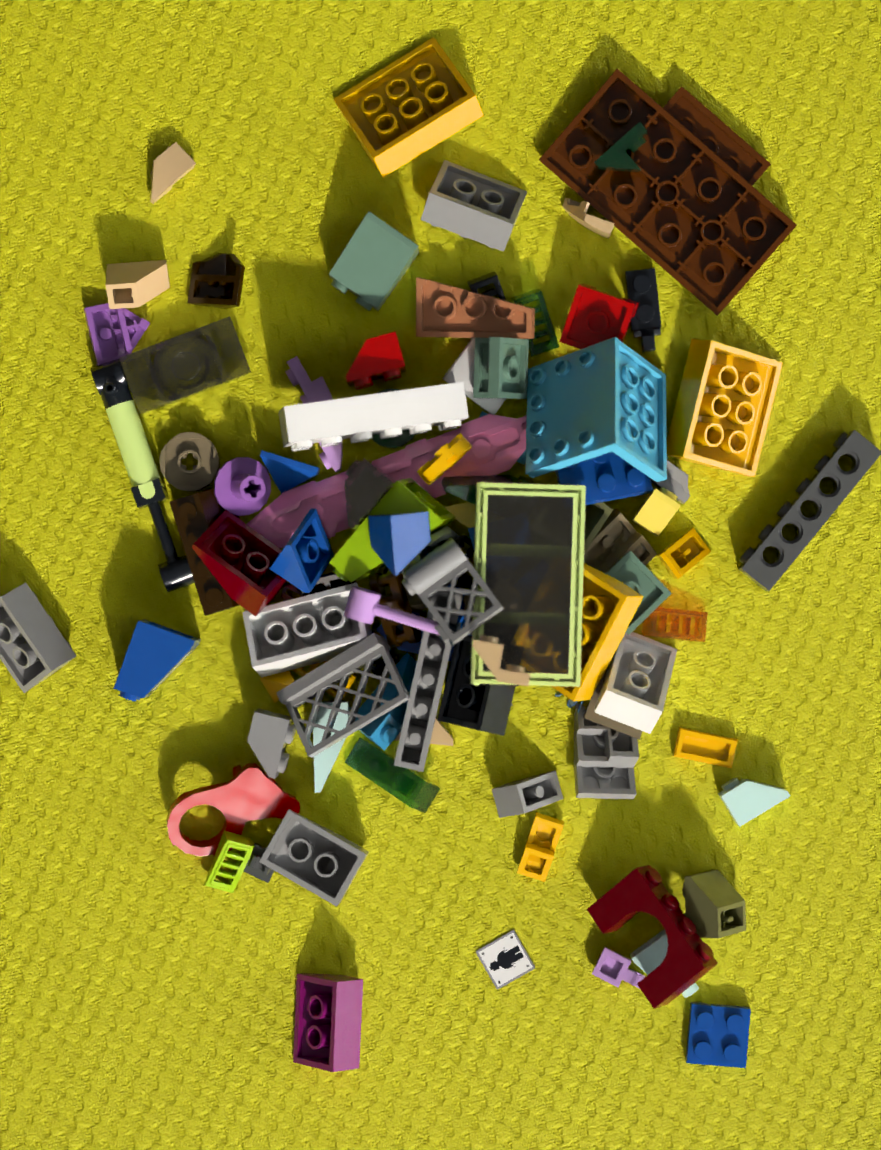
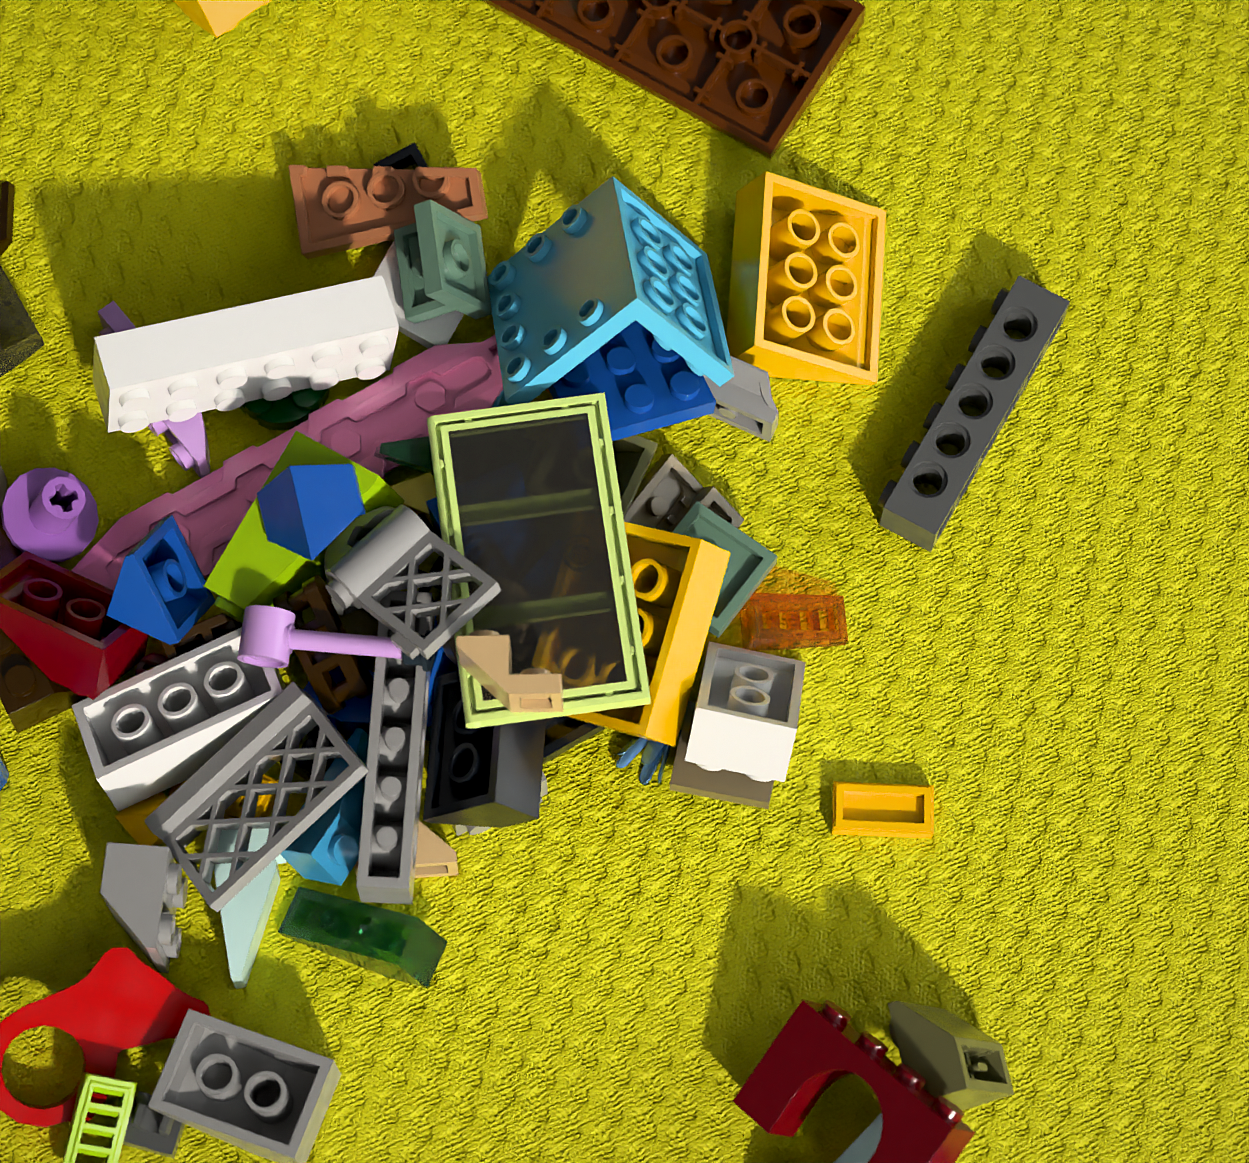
camera: 15 degrees left, 20 degrees down
(287, 472) = (123, 480): blue slope -> none
(364, 490) = (245, 449): clear smoke slope -> none
(373, 262) = (219, 149): sand green slope -> none
(377, 359) = (242, 273): red slope -> none
(444, 458) = (376, 403): yellow plate -> none
(473, 205) = (362, 59): light grey slope -> none
(527, 794) = (596, 929): light grey slope -> none
(540, 847) = (635, 1018): yellow slope -> none
(545, 319) = (503, 203): clear green slope -> none
(578, 212) = (545, 52): tan slope -> none
(596, 317) = (575, 164): red panel -> none
(603, 760) = (716, 854): light grey slope -> none
(646, 323) = (653, 161): black hinge -> none
(656, 510) = (729, 443): light yellow slope -> none
(683, 553) = (783, 511): yellow slope -> none
(750, 798) = (974, 874): light aqua slope -> none

